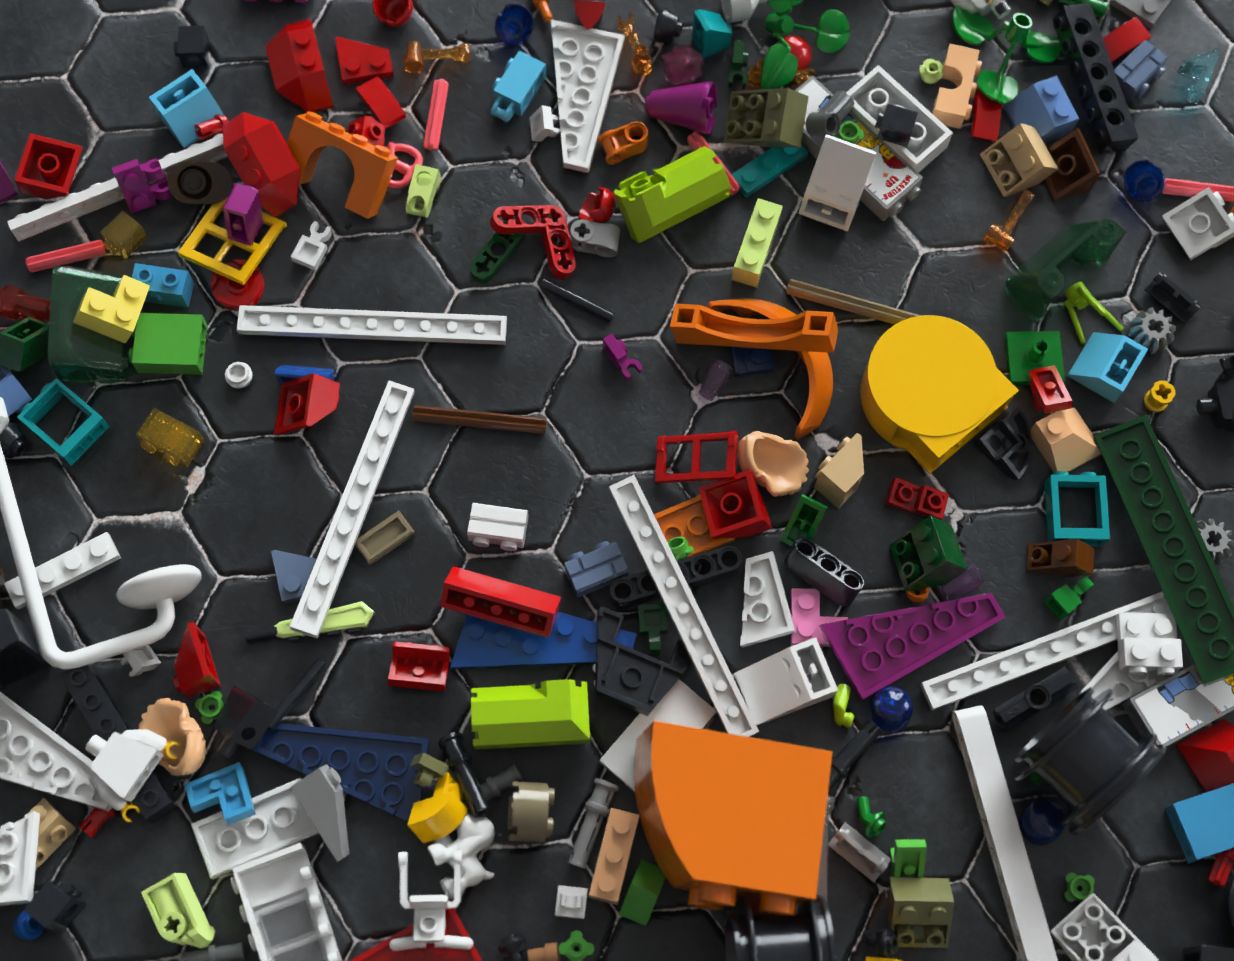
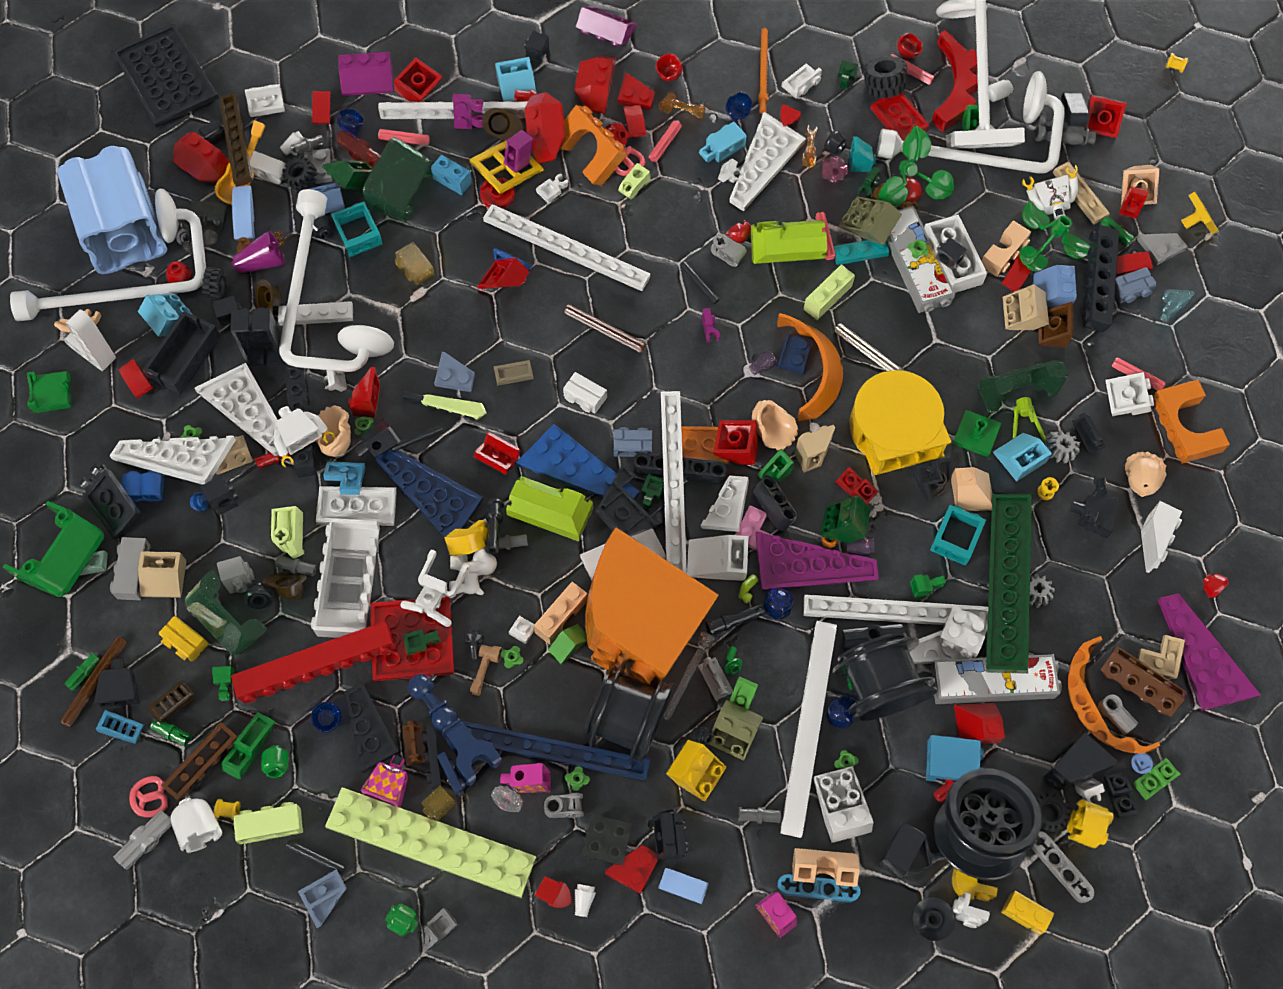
camera: 25 degrees right, 5 degrees down
(116, 314) = (414, 177): light yellow brick -> none
(123, 235) = (443, 138): clear yellow brick -> none
(169, 343) = (440, 209): bright green brick -> none
(238, 375) = (472, 244): white plate -> none
(324, 804) = (402, 506): light grey slope -> none
(352, 510) = (501, 346): white plate -> none
(427, 769) = (473, 512): olive tile -> none
(481, 259) = (660, 241): dark green beam -> none
(500, 601) = (563, 434): red brick -> none
(529, 812) = (521, 563): dark tan brick -> none
(546, 227) = (701, 233): red beam -> none
(596, 809) = (563, 582): light grey pin -> none
(621, 142) = (773, 201): orange piece -> none
(680, 548) = (689, 450): bright green plate -> none
(685, 106) = (824, 194): magenta cone -> none
(696, 475) = (722, 411): red window -> none
(802, 332) = (829, 352): orange arch -> none
(830, 116) = (911, 232): dark grey piece -> none
(837, 182) = (896, 274): white slope -> none
(931, 76) = (994, 238): yellowish green plate -> none
(1000, 235) = (991, 351): clear orange brick -> none
(1048, 390) = (974, 453): red slope -> none
(1061, 558) = (933, 559): reddish brown slope -> none
(1144, 181) = (1103, 353): clear blue hair -> none

